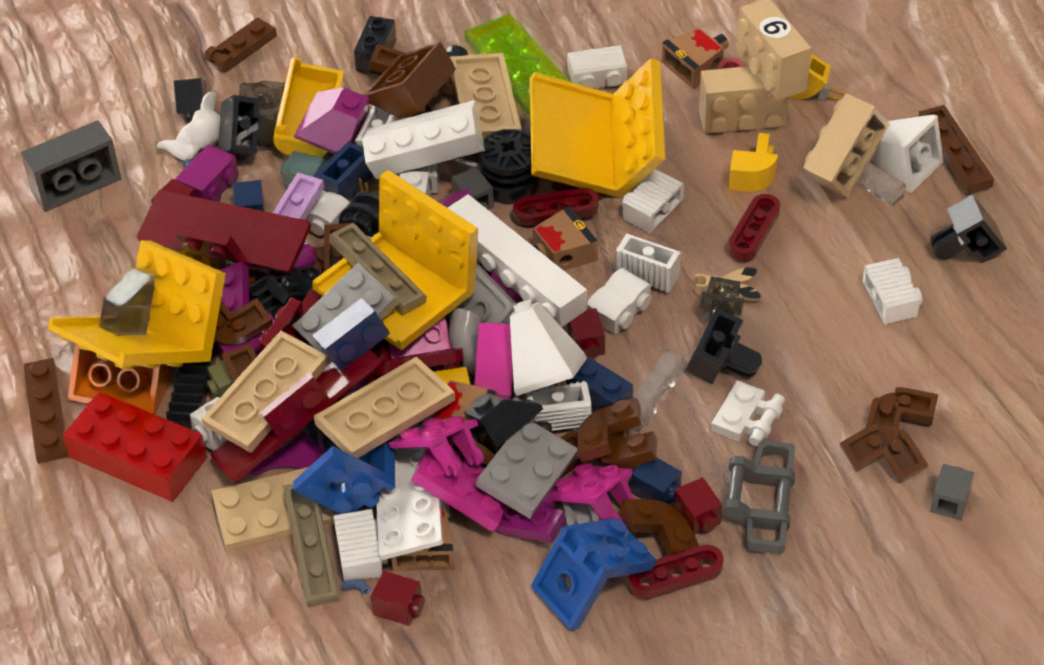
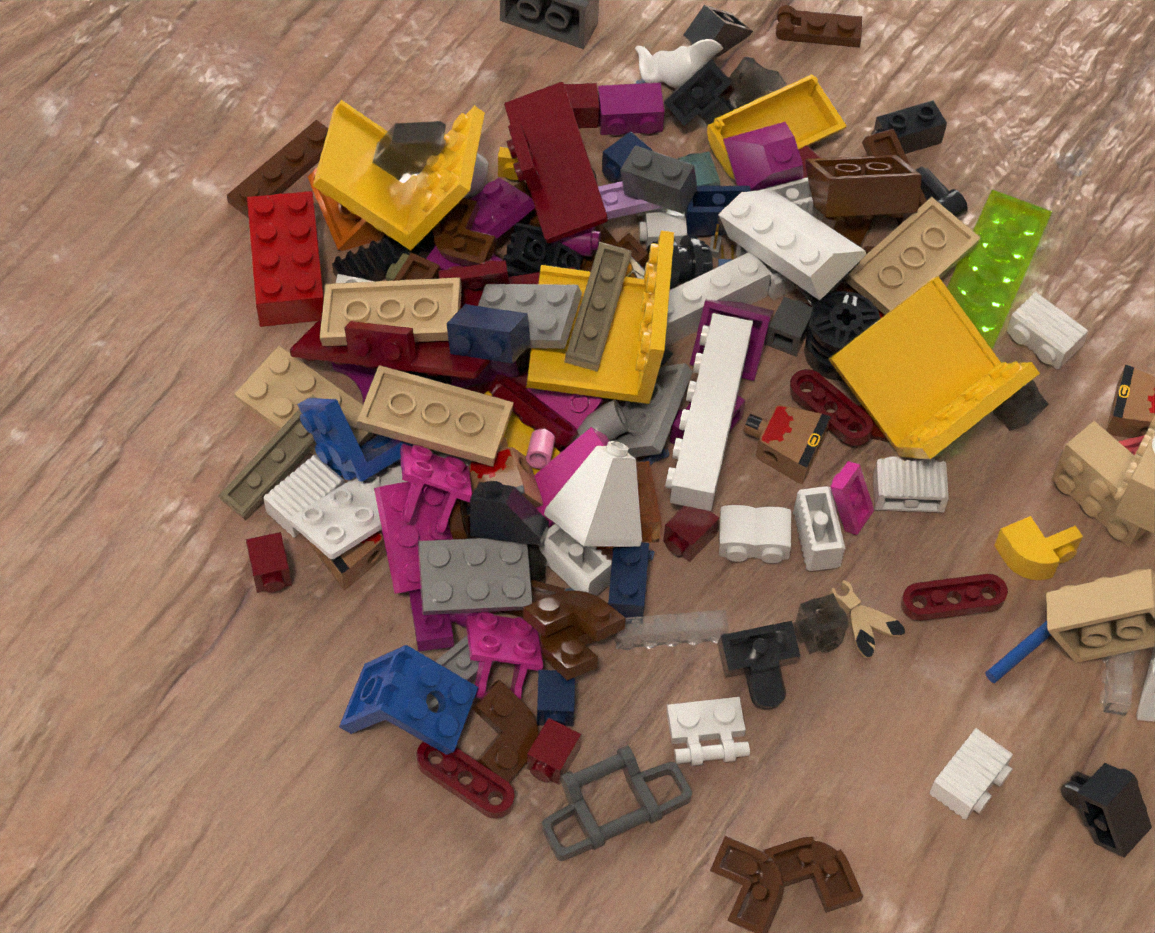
camera: 50 degrees right, 10 degrees up
(305, 177) = (659, 179): none -> dark grey brick
(348, 585) = (269, 525): medium blue leg -> none
(458, 370) = (540, 448): none -> bright pink hinge
(636, 224) = (852, 497): none -> dark pink plate
(817, 213) = (1018, 653): none -> blue bar

